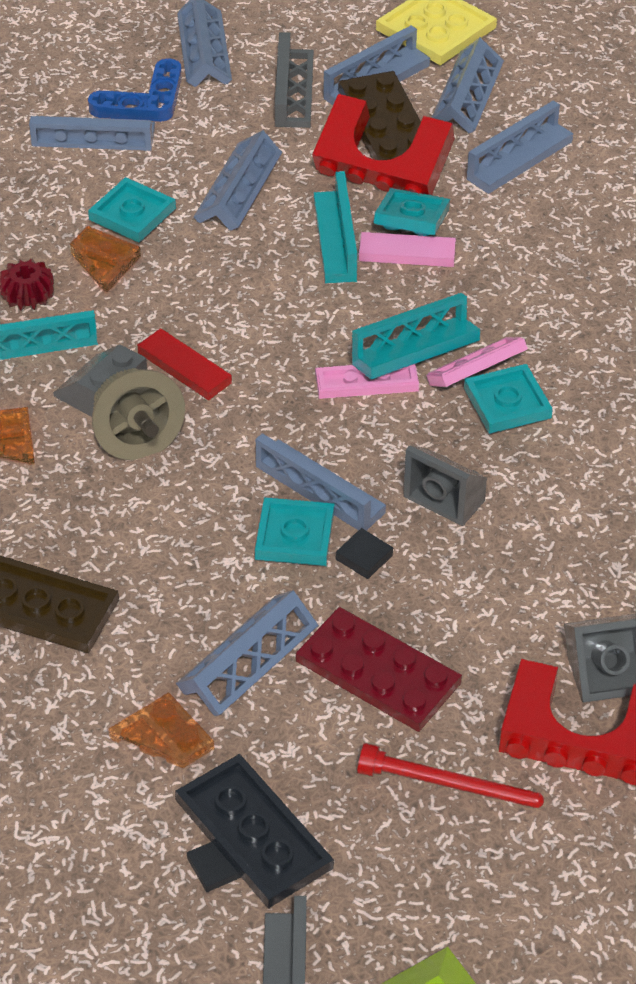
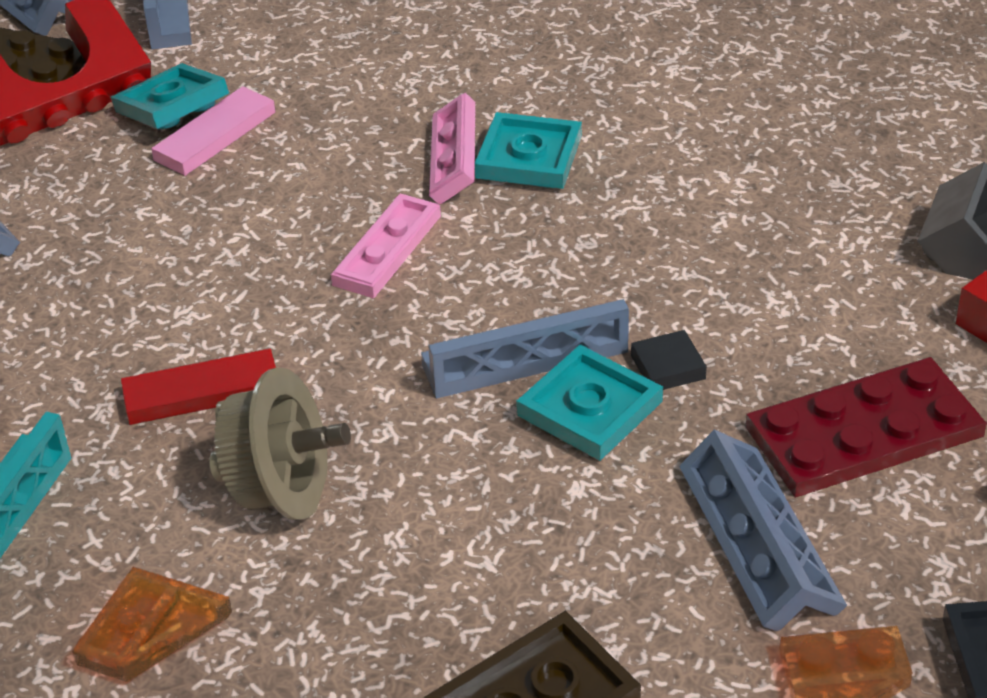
camera: 55 degrees left, 5 degrees down
(82, 386) = (159, 471): dark grey slope -> none
(336, 233) = (133, 170): teal fence -> none
(413, 345) = (377, 175): teal fence -> none
(442, 485) = (632, 243): dark grey slope -> none

